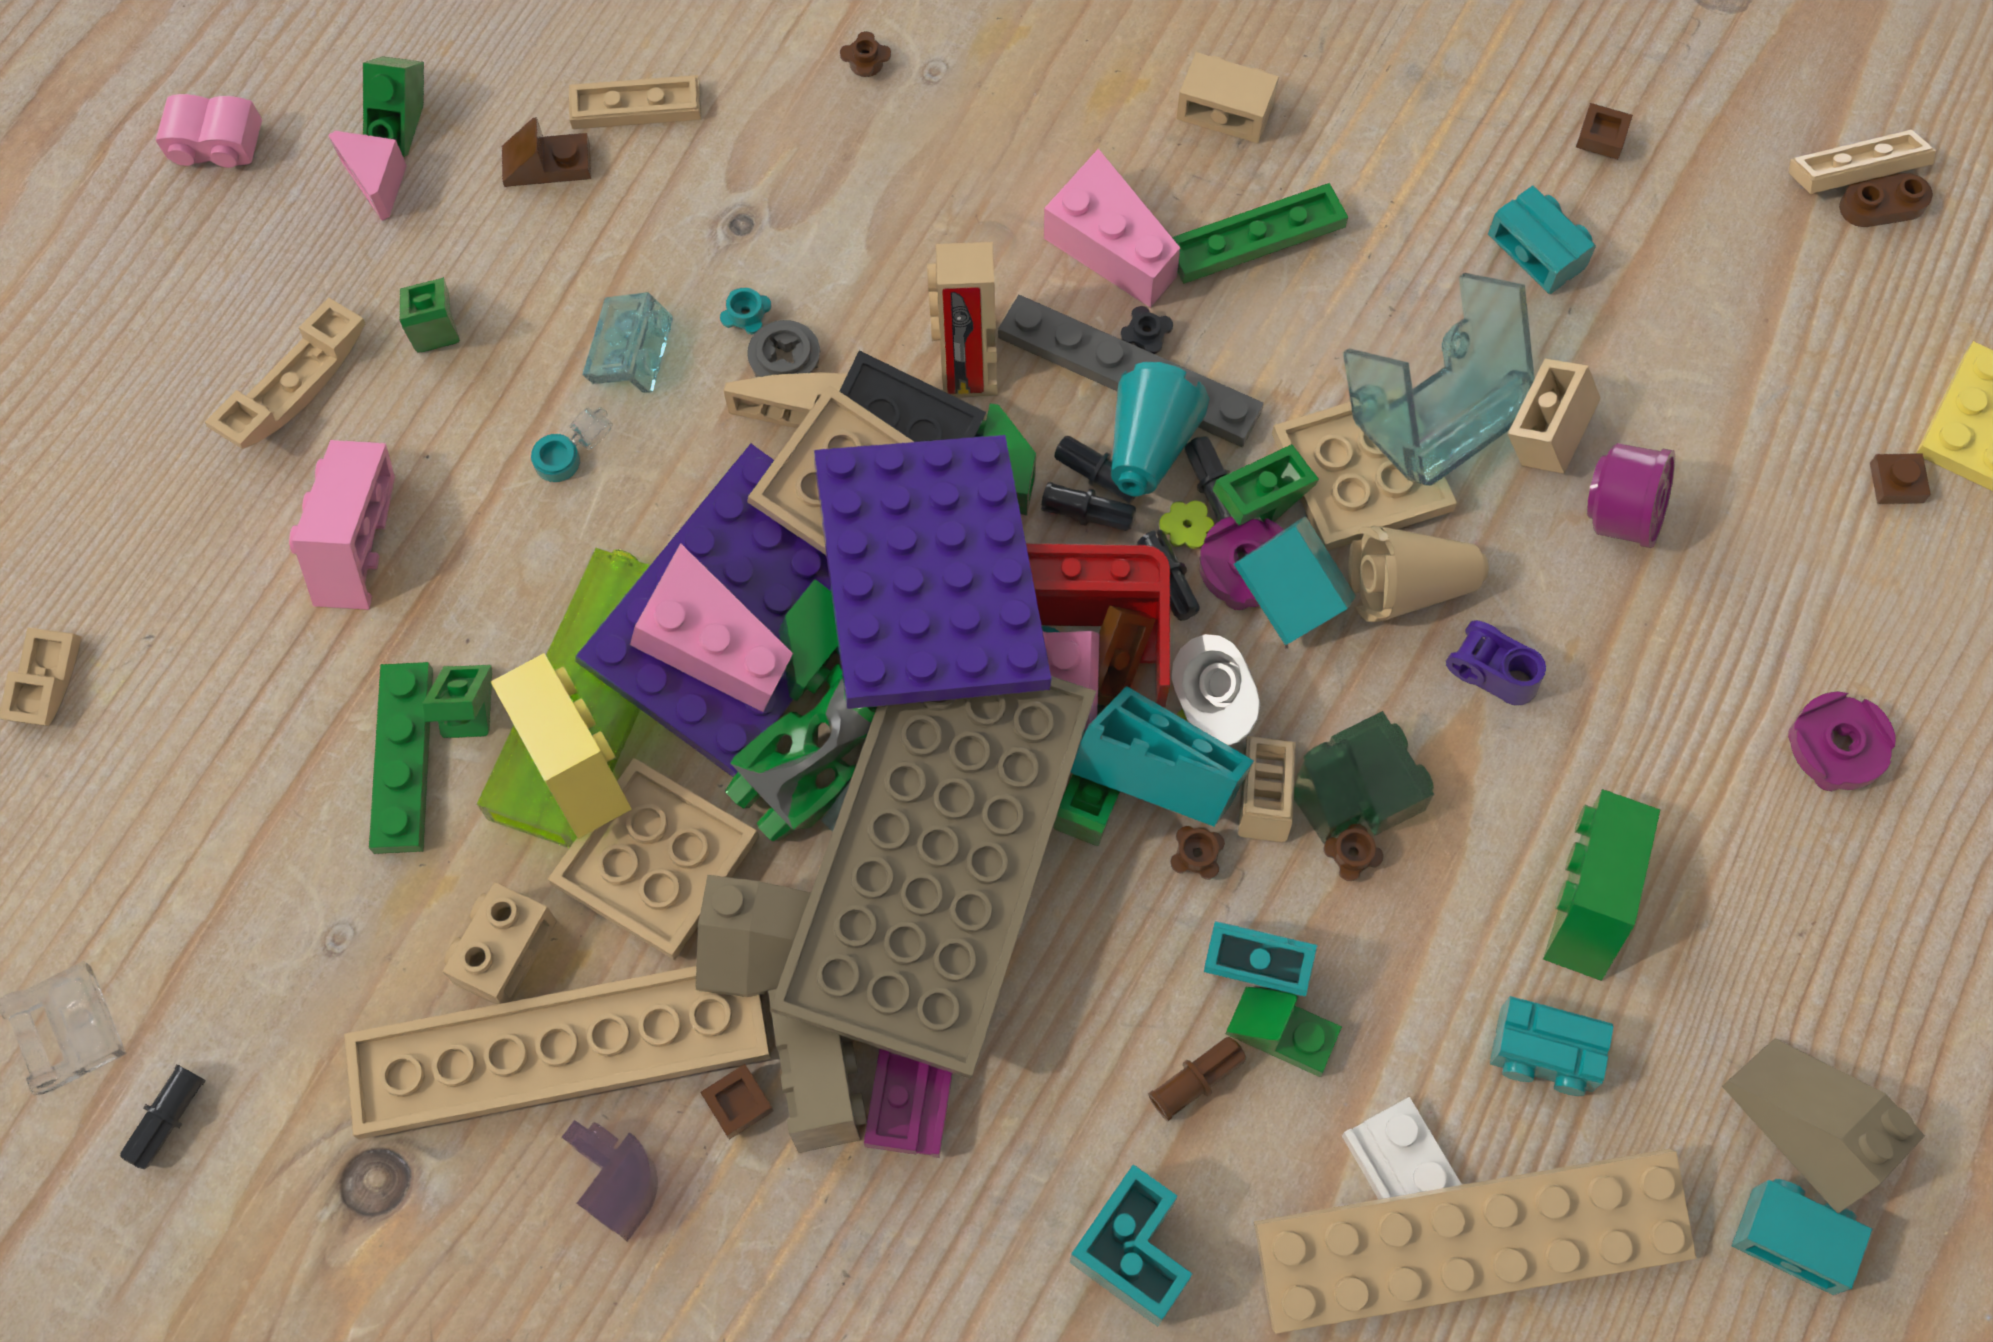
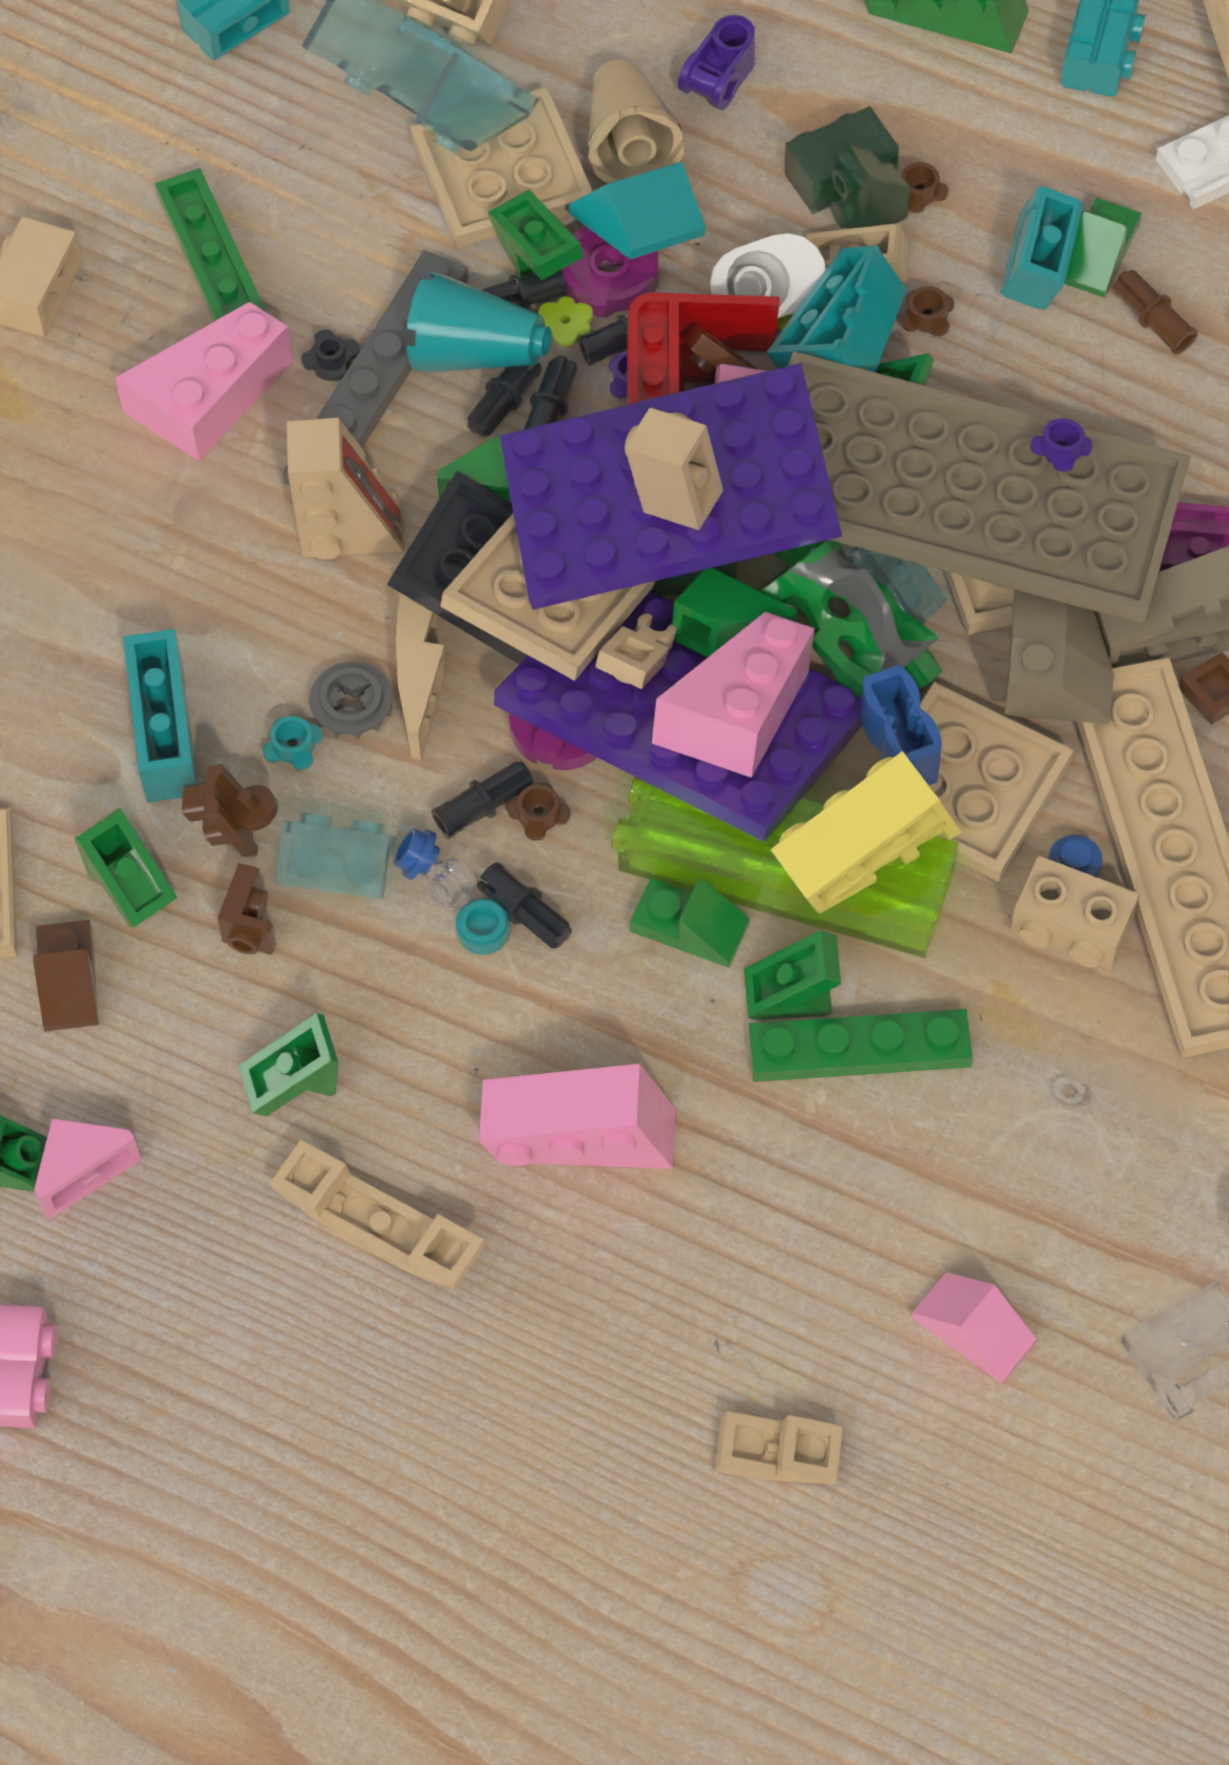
camera: 90 degrees left, 5 degrees down
(117, 836) = (976, 1323): none -> bright pink slope
(534, 619) = (692, 922): none -> green slope
(562, 953) = (1077, 853): none -> blue plate
(564, 486) = (524, 905): none -> black axle
(578, 270) = (242, 914): none -> reddish brown bracket
(621, 401) = (416, 853): none -> blue plate
(625, 179) = (124, 868): none -> green slope
(656, 488) = (538, 797): none -> reddish brown plate
(663, 252) = (229, 809): none -> reddish brown hips
(667, 785) = (897, 723): none -> blue brick
(675, 454) = (481, 799): none -> black axle
(763, 203) = (160, 714): none -> teal brick
(769, 552) = (638, 654): none -> tan plate
(894, 538) = (673, 467): none -> tan brick
(972, 922) = (1062, 443): none -> dark purple plate

